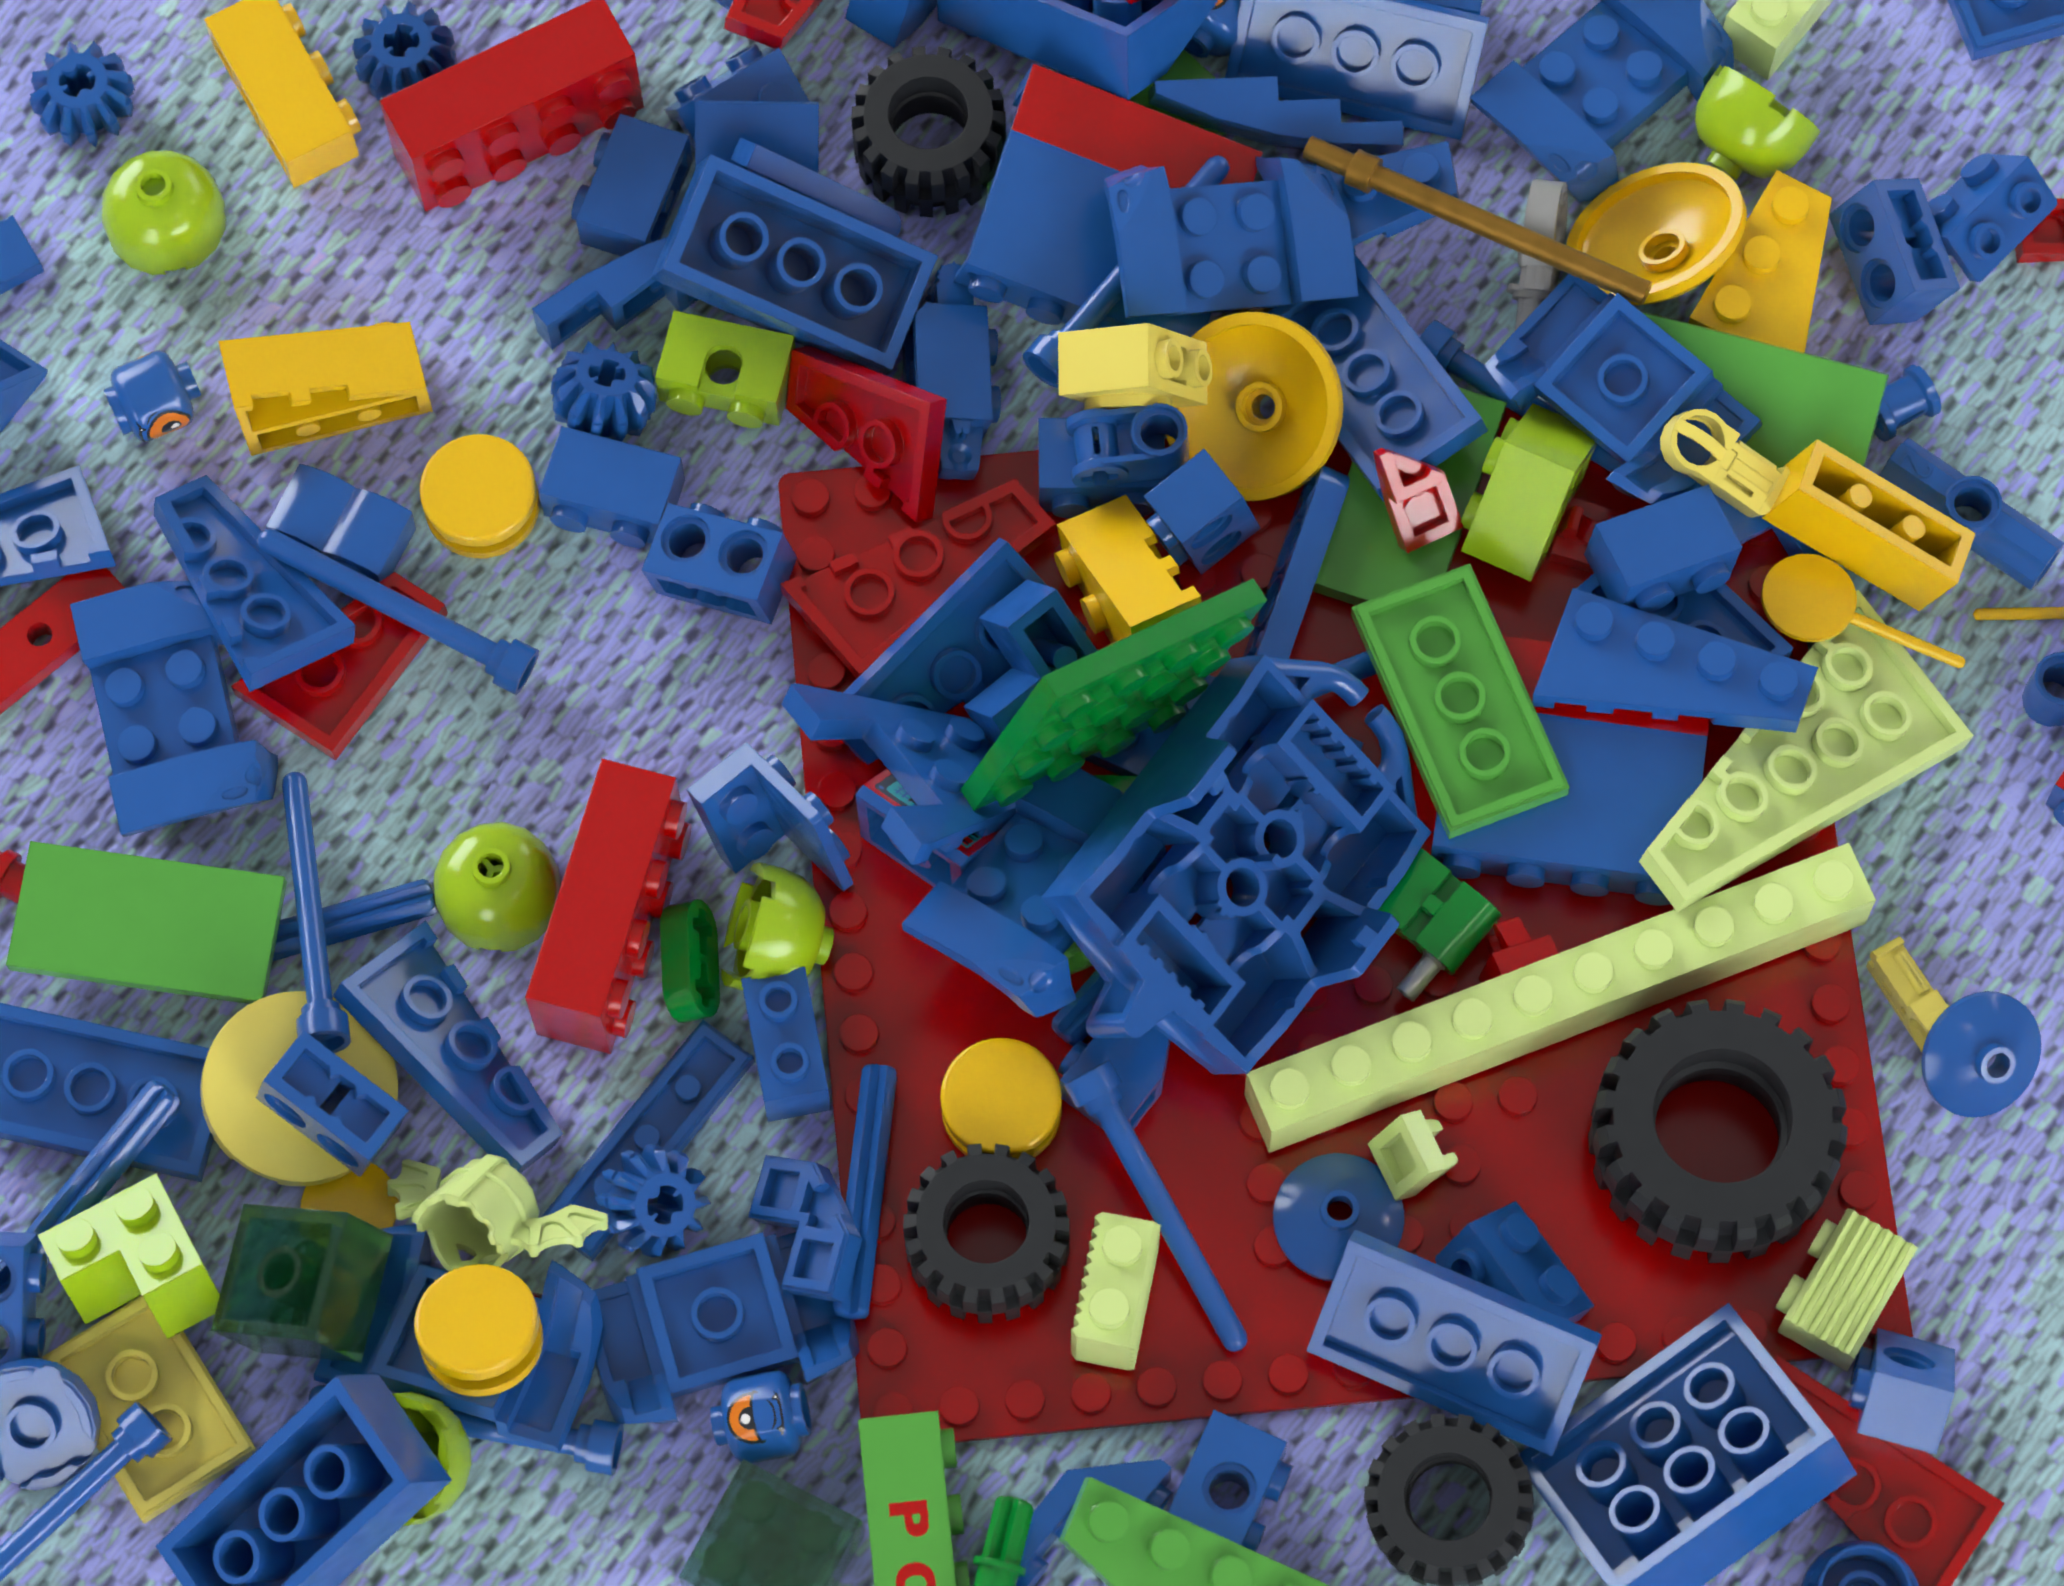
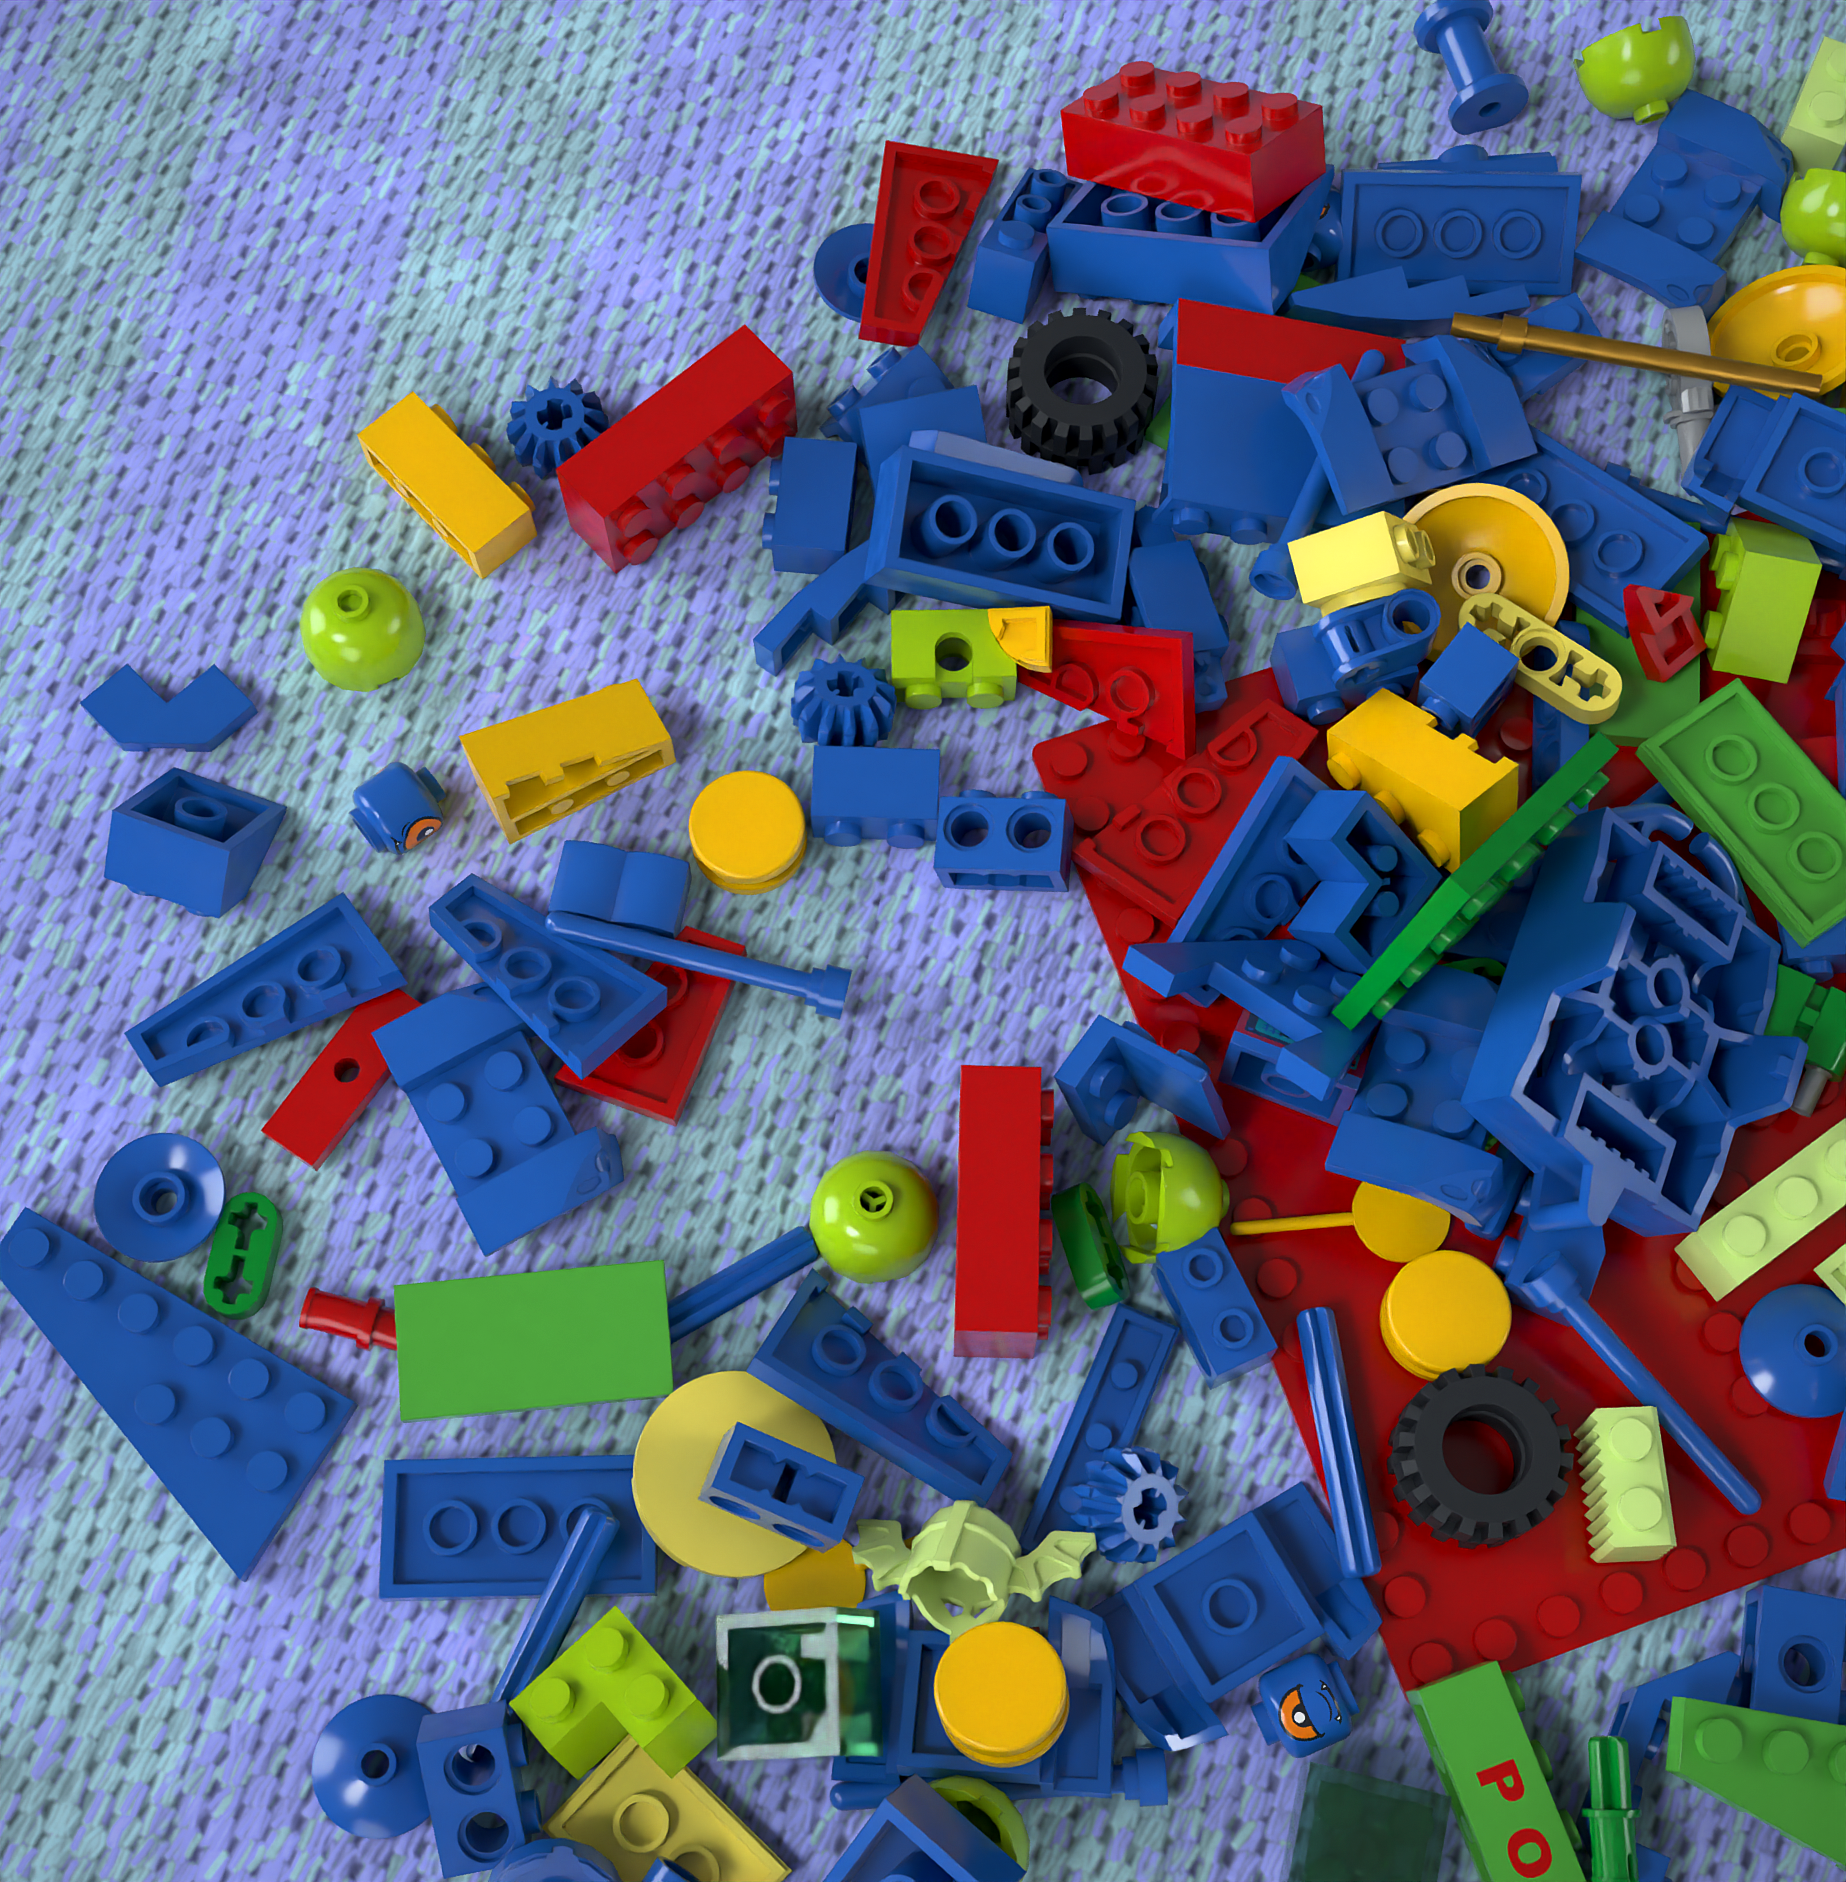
camera: 15 degrees left, 0 degrees up
(82, 93) = (253, 533): blue gear -> none
(321, 1014) = (741, 1395): blue piece -> none
(793, 364) = (1024, 635): none -> yellow tile
(826, 1238) = (1318, 1501): blue tile -> none
(973, 1004) = (1384, 1219): none -> yellow piece
(1287, 526) = (1586, 669): none -> light yellow beam

